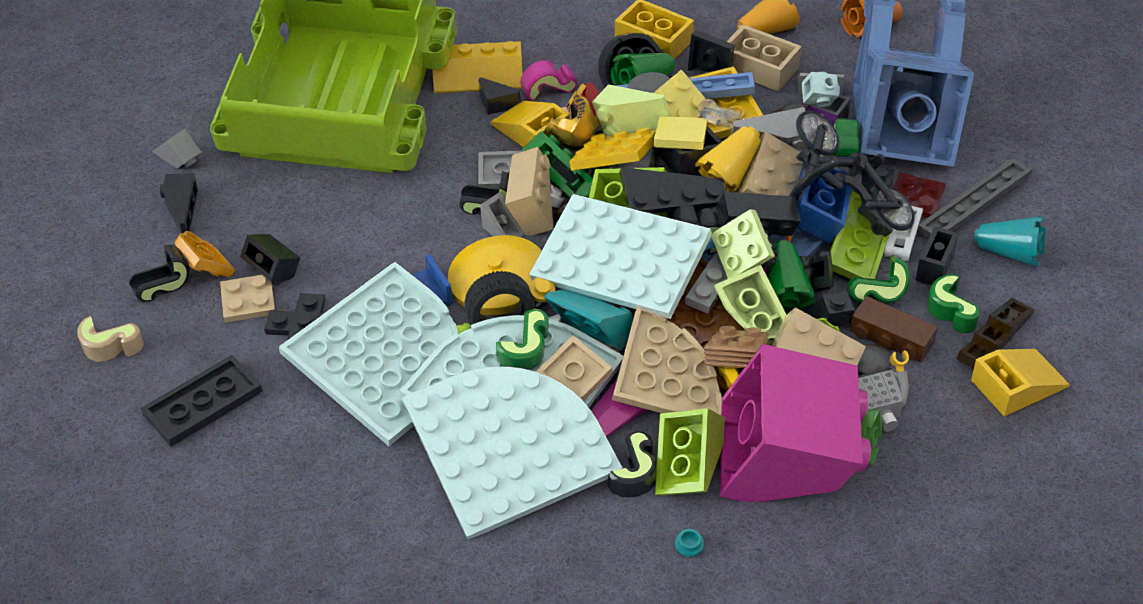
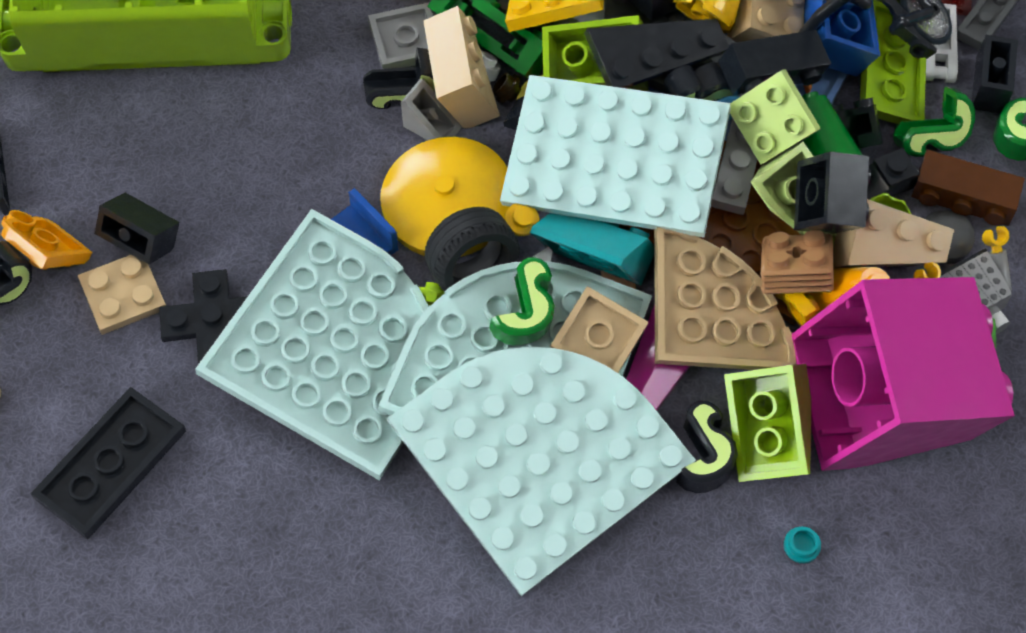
camera: 15 degrees left, 15 degrees up
(771, 299) = (832, 193): none -> black brick

